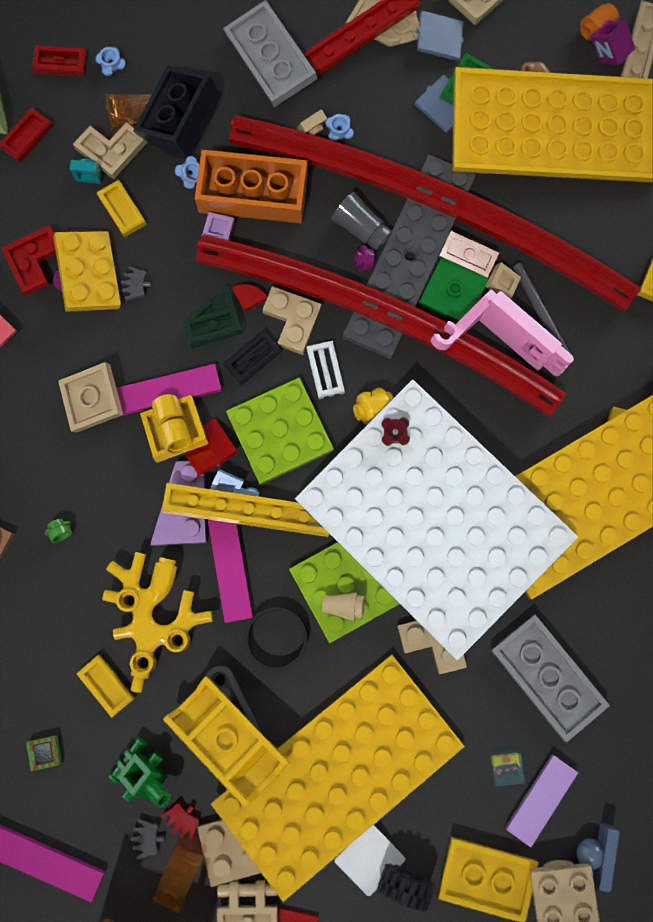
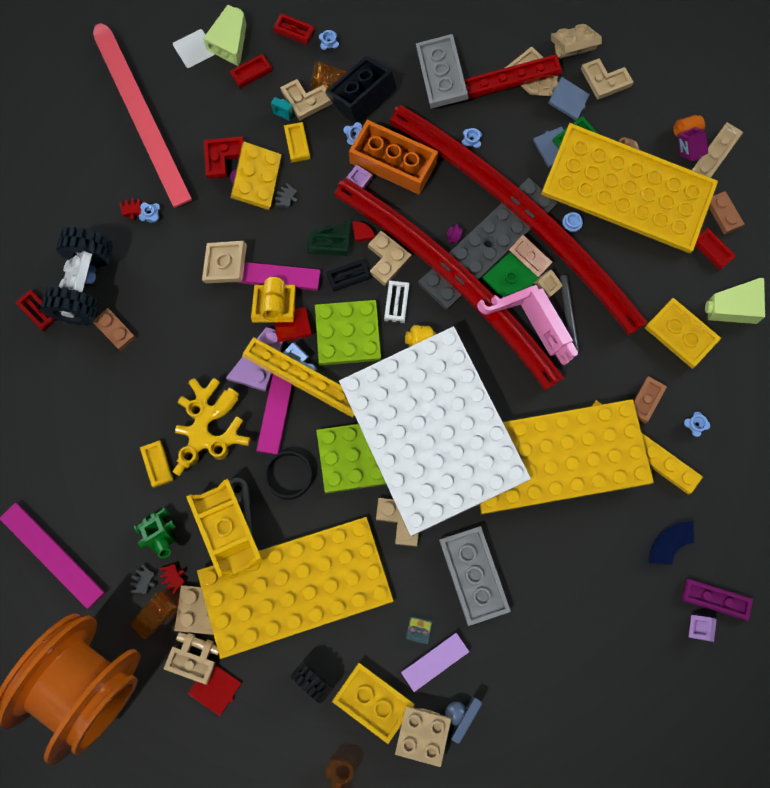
camera: 20 degrees right, 5 degrees down
(44, 753) = (96, 494): tile -> none
(58, 530) = (166, 345): bright green plate -> none
(313, 124) = (453, 129): tan plate -> none
(345, 605) = (346, 468): tan cone -> none
(361, 222) = (461, 207): dark grey plant -> none
(366, 859) = (291, 652): white sticker -> none
(399, 424) = (426, 351): dark red plate -> none
(502, 192) = (572, 222): none -> light blue plate

